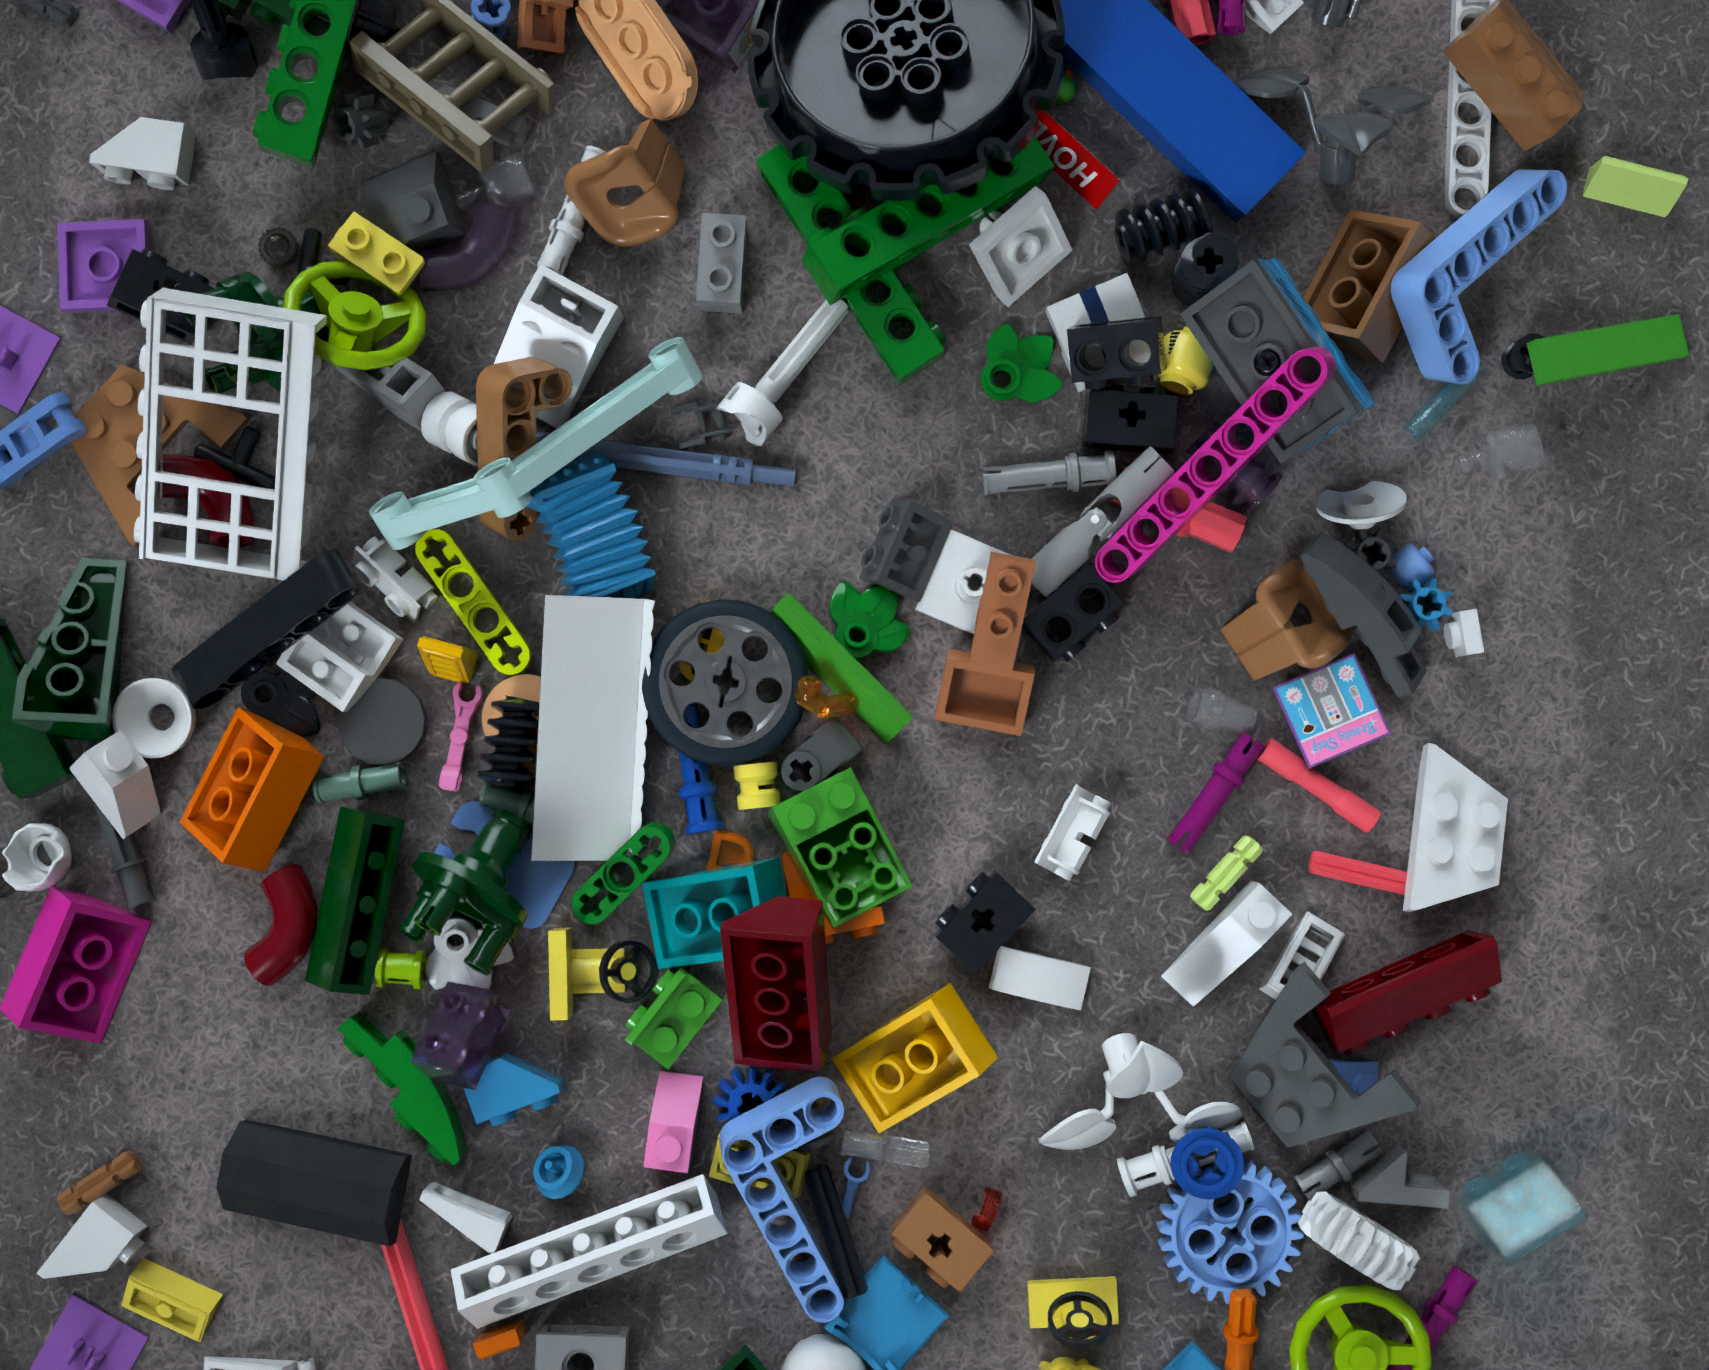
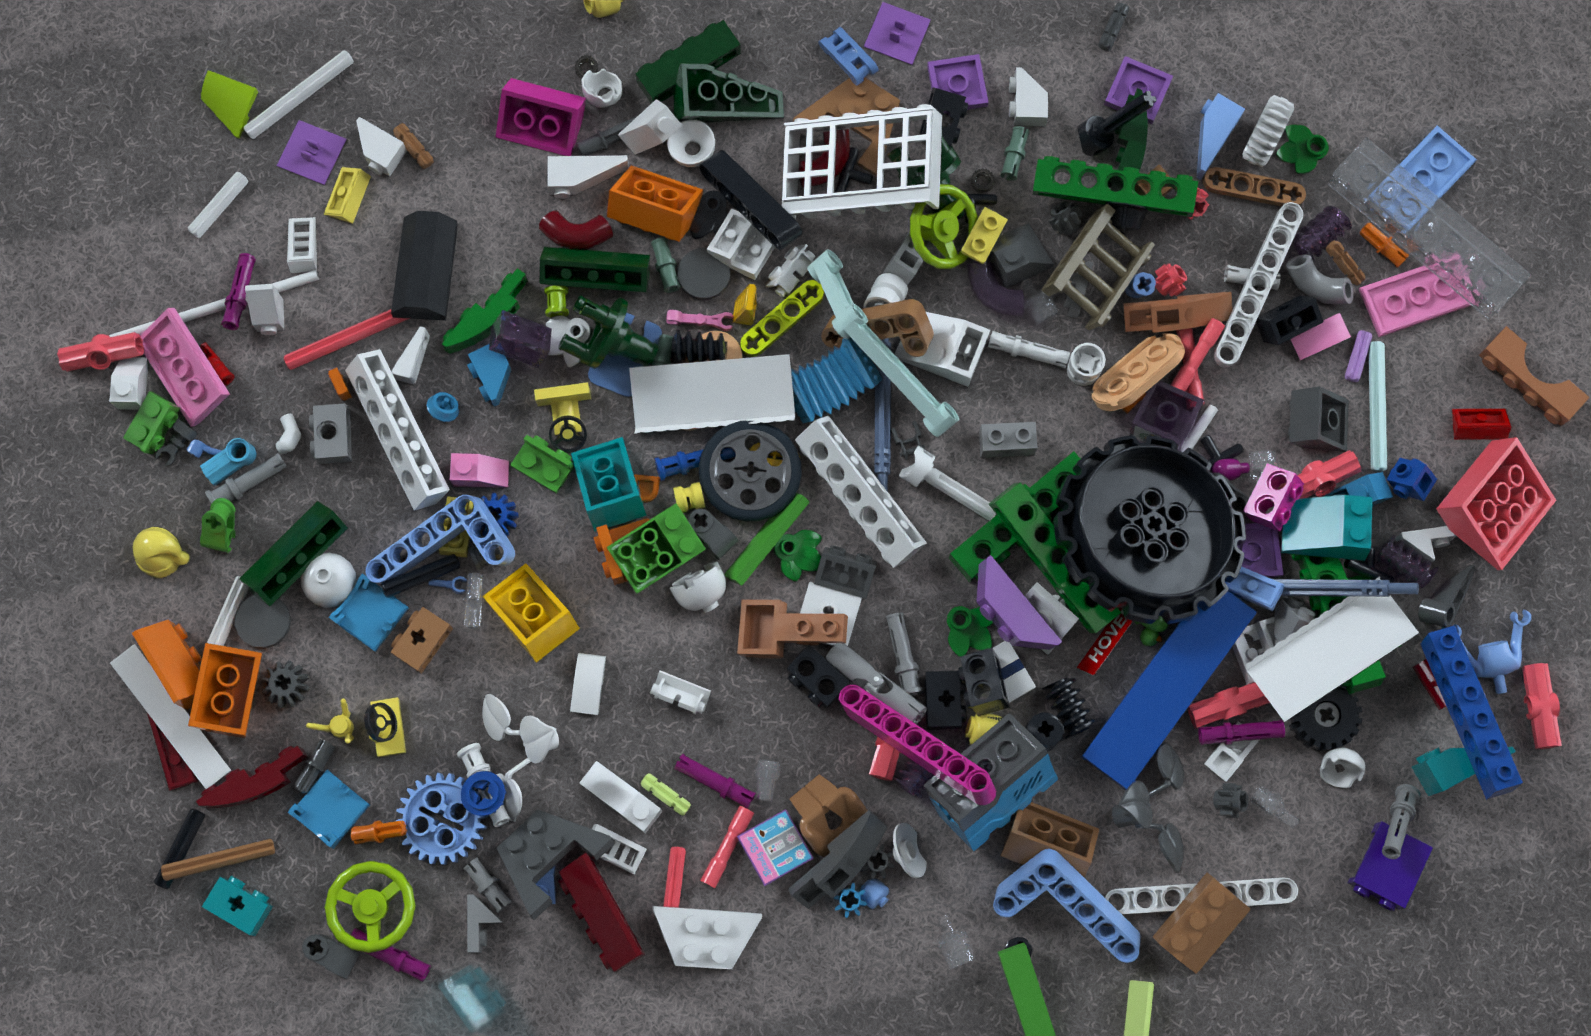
camera: 80 degrees right, 10 degrees down
(183, 911) = (577, 173): none -> white slope
(237, 188) = (1014, 153): none -> sand green pin
(594, 885) = (631, 434): green beam -> none
(610, 117) = (1085, 364): none -> white wheel
(643, 162) = (1061, 386): medium nougat piece -> none
(778, 984) = (568, 518): dark red slope -> none
(790, 488) = (873, 495): none -> white brick
(824, 706) = (742, 529): clear orange arm -> none
(909, 782) = (701, 588): none -> white cylinder
(986, 1223) = (434, 662): clear red axle -> none
(1005, 294) = (1010, 610): none -> medium lavender wedge
(1007, 915) = (604, 641): black brick -> none
(1358, 1240) = (442, 895): white gear -> none
(1436, 408) = (979, 898): clear light blue piece -> none
(1464, 633) = (834, 927): white plate -> none

